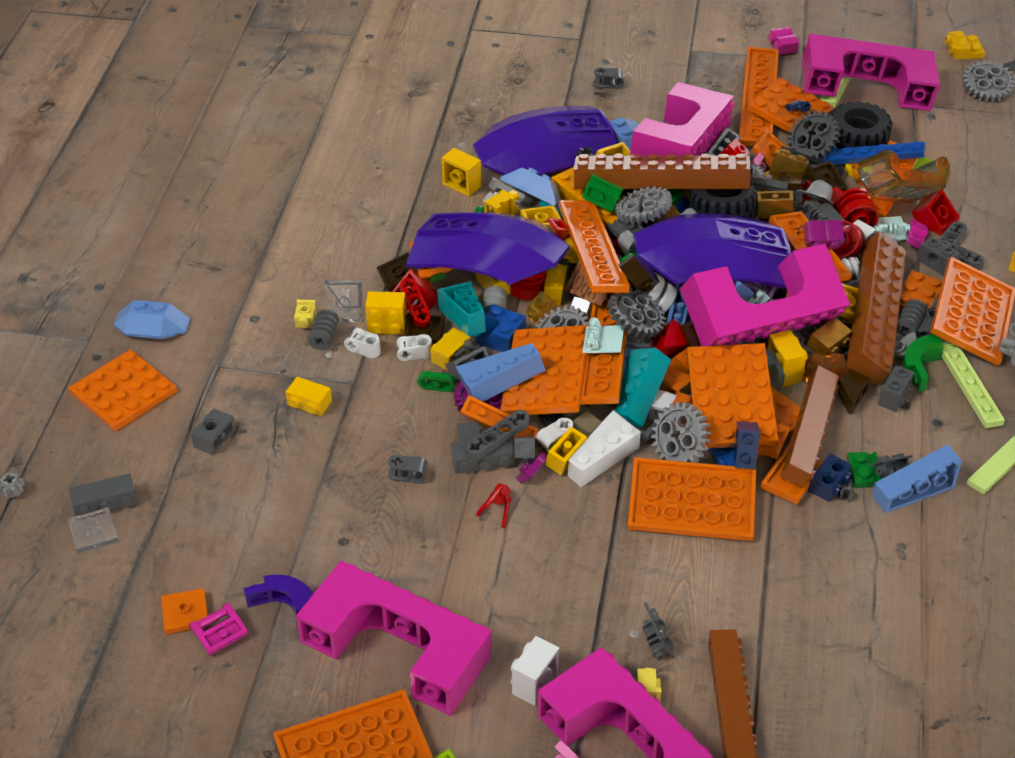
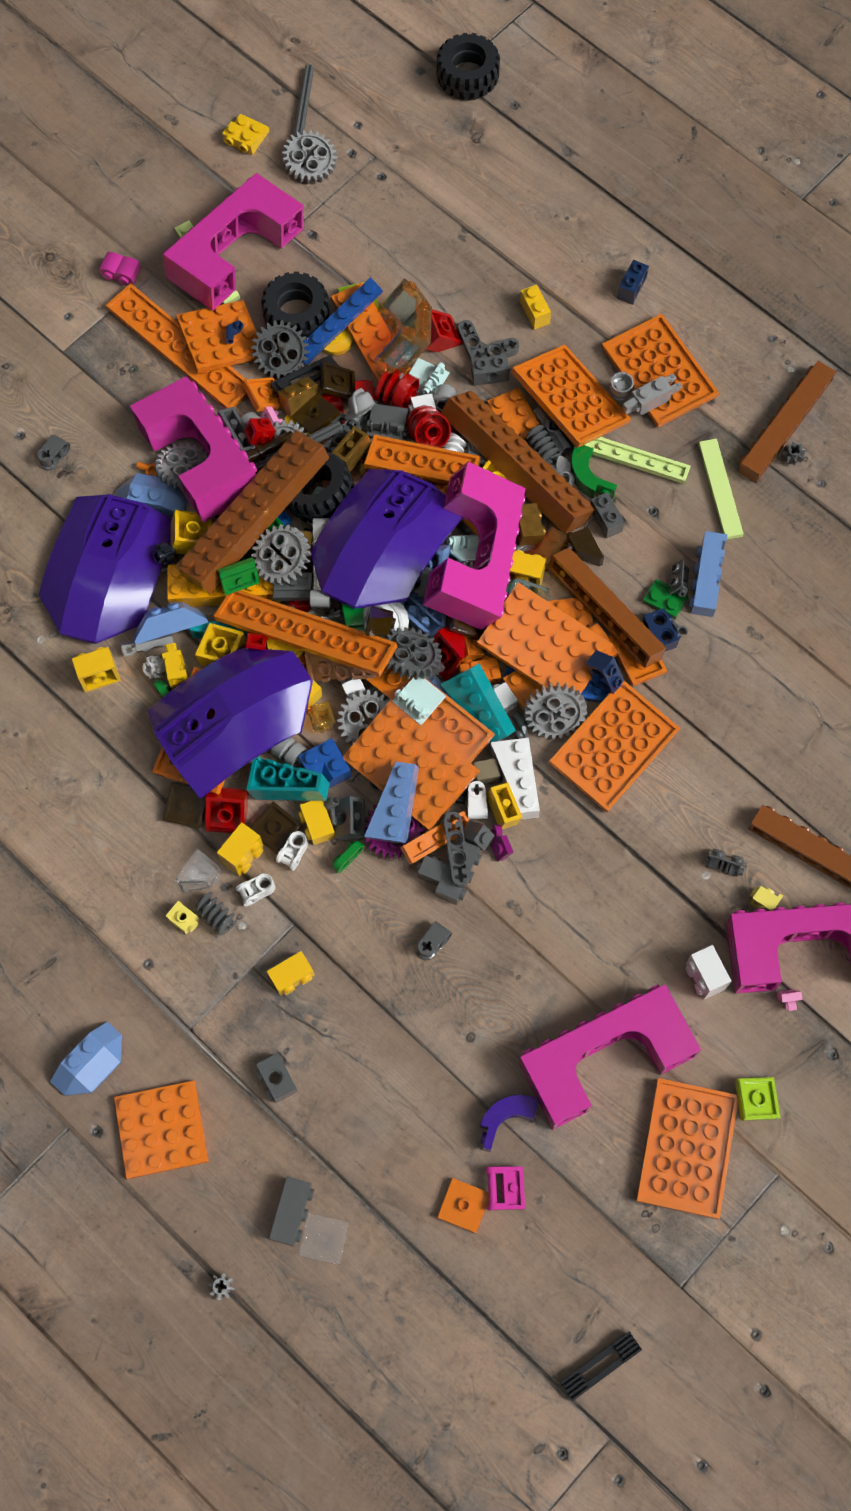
camera: 55 degrees left, 25 degrees up
(416, 294) = (236, 810): red beam -> none
(498, 496) = (511, 886): red plant -> none
(824, 232) = (427, 443): magenta brick -> none
(917, 233) = (452, 367): dark pink slope -> none

